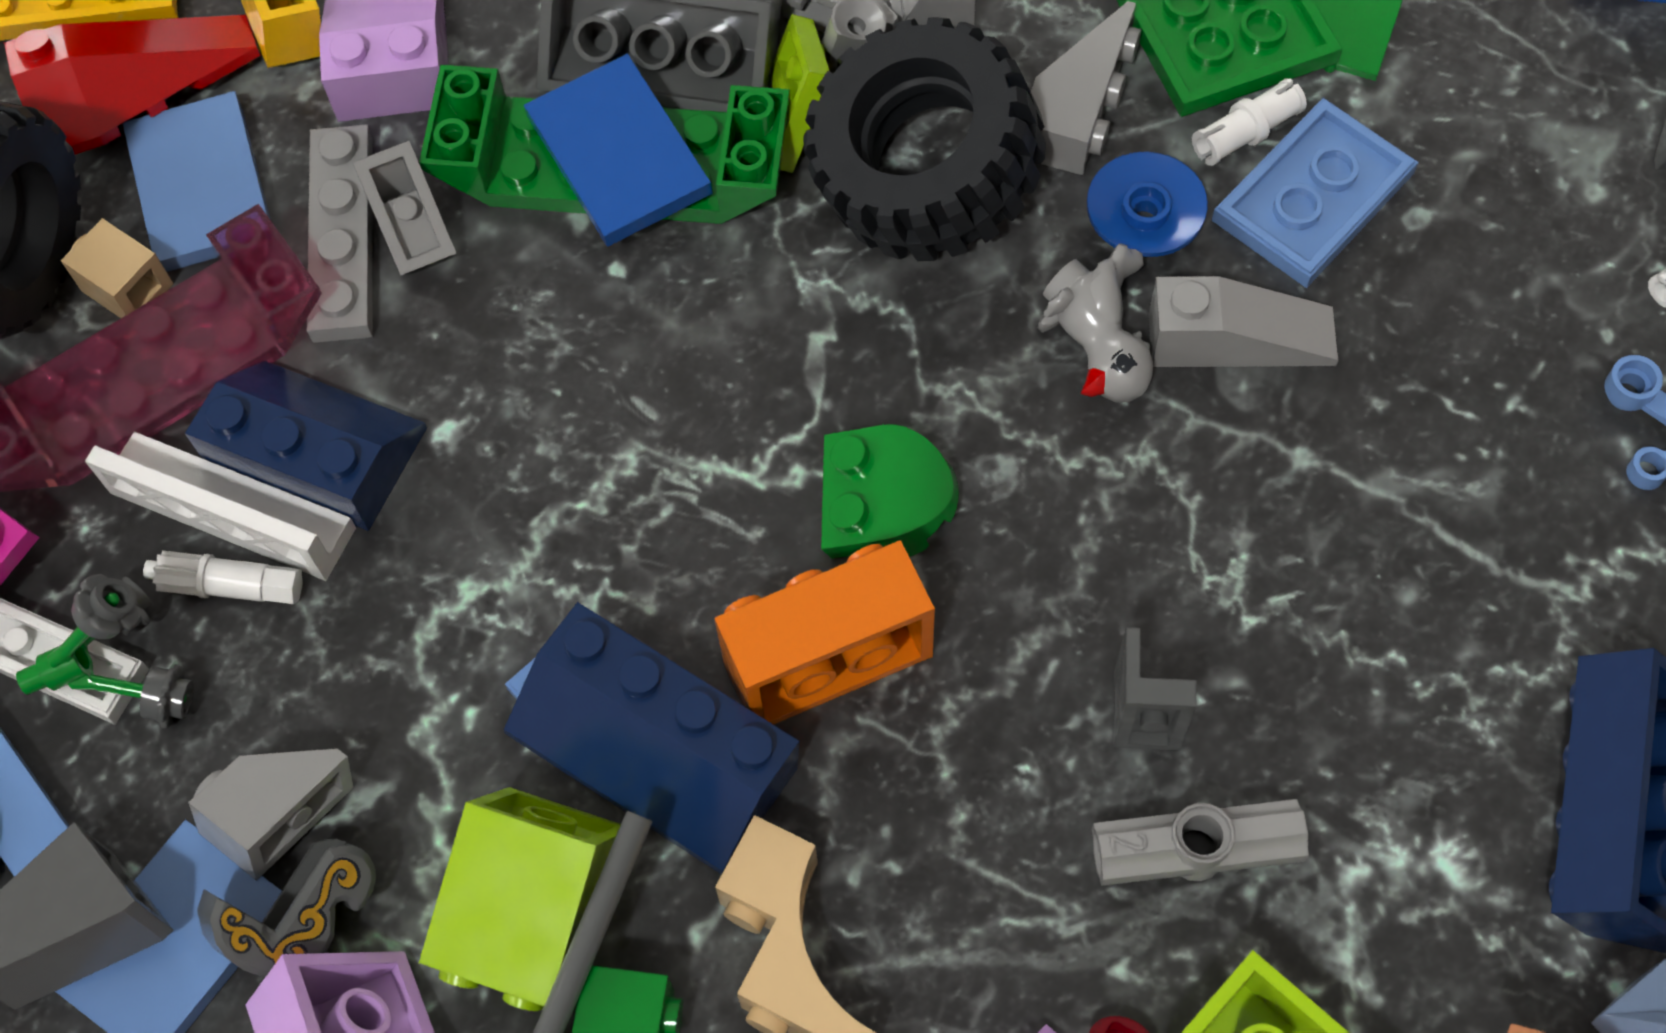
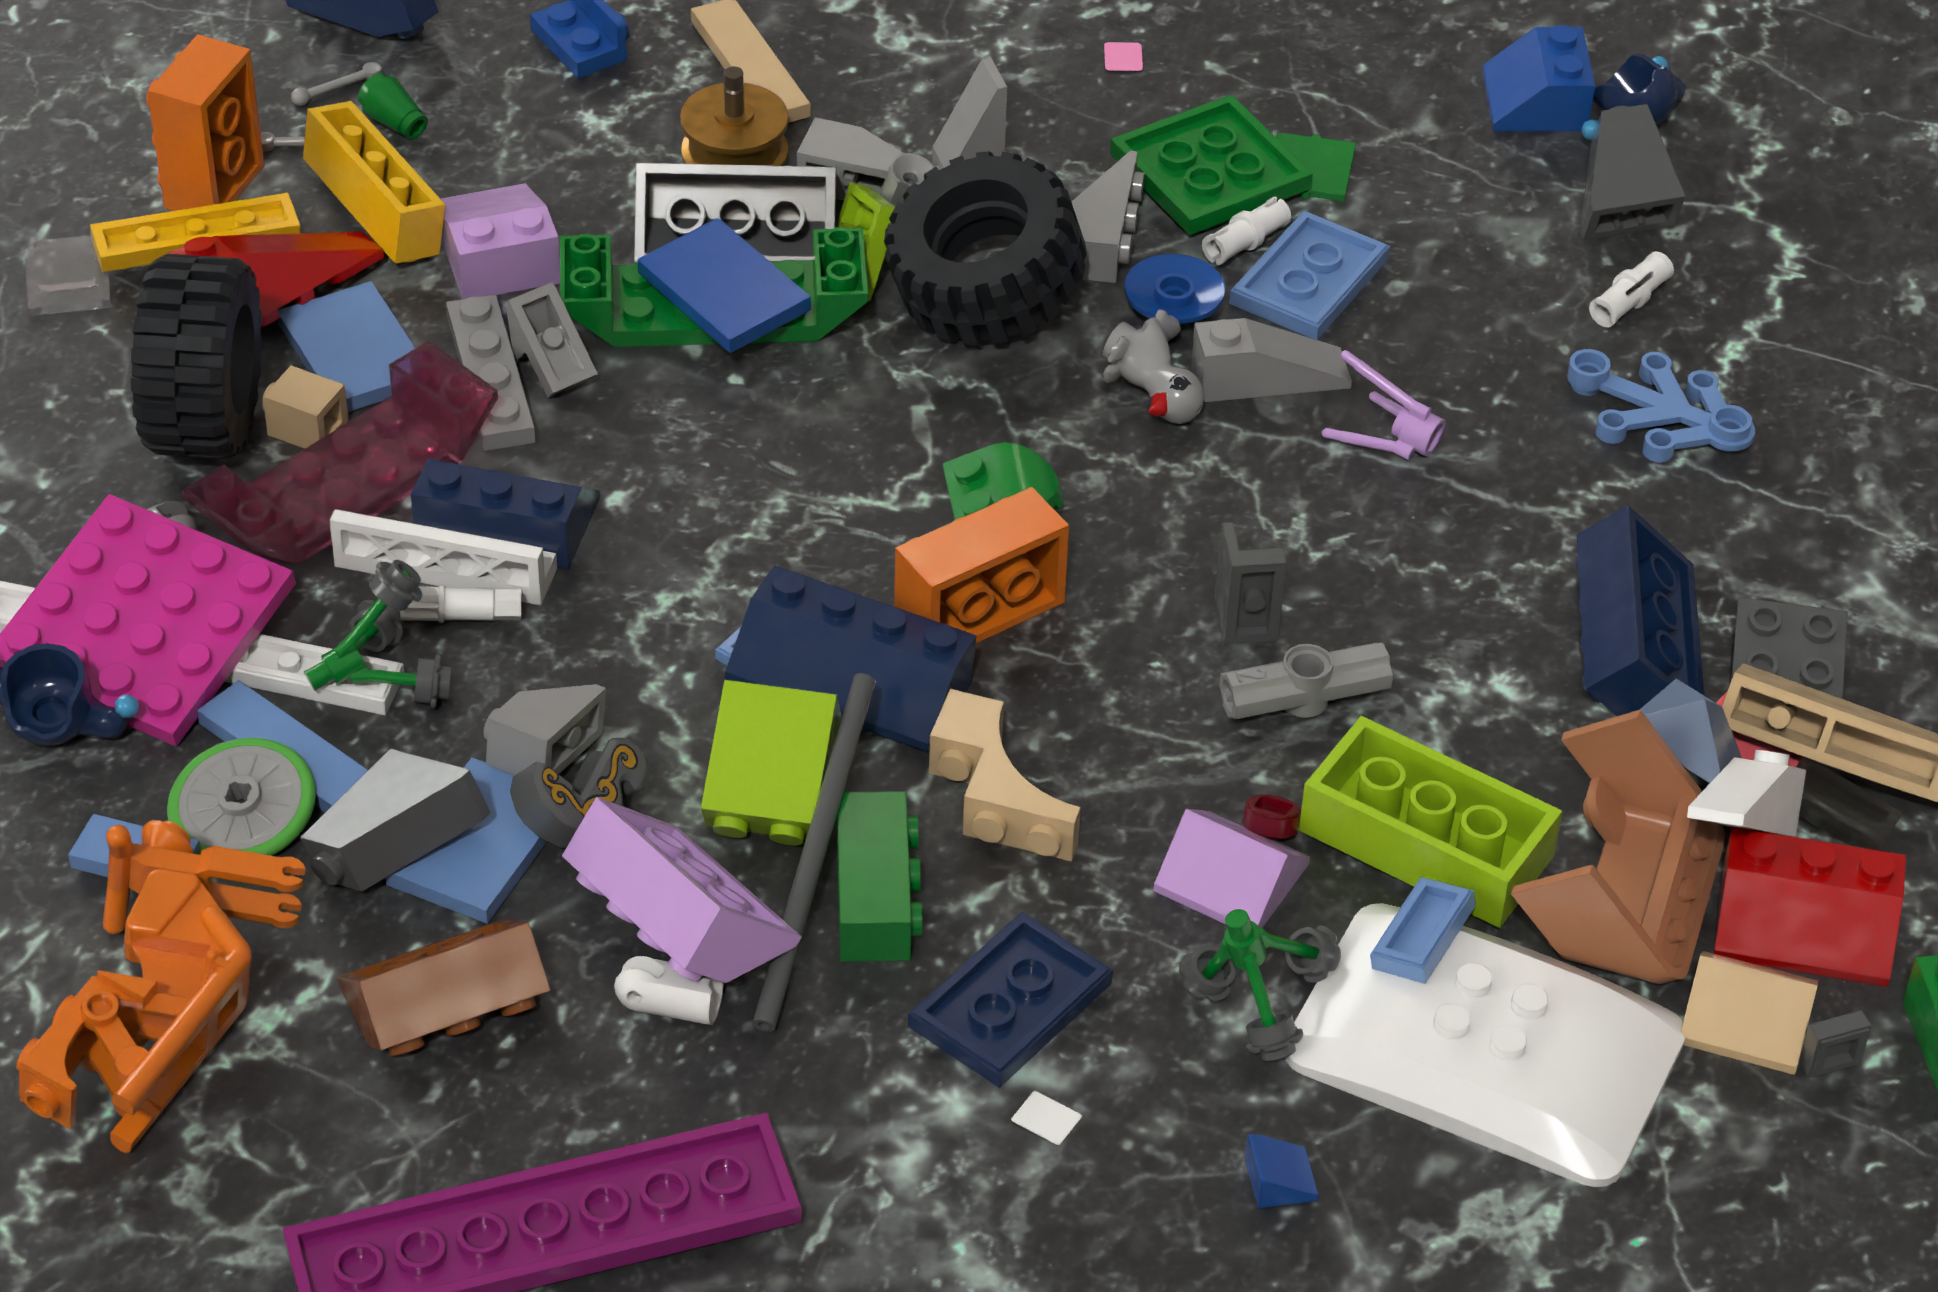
camera: 15 degrees left, 20 degrees down
(1402, 449) = (1414, 426): none -> lavender plant

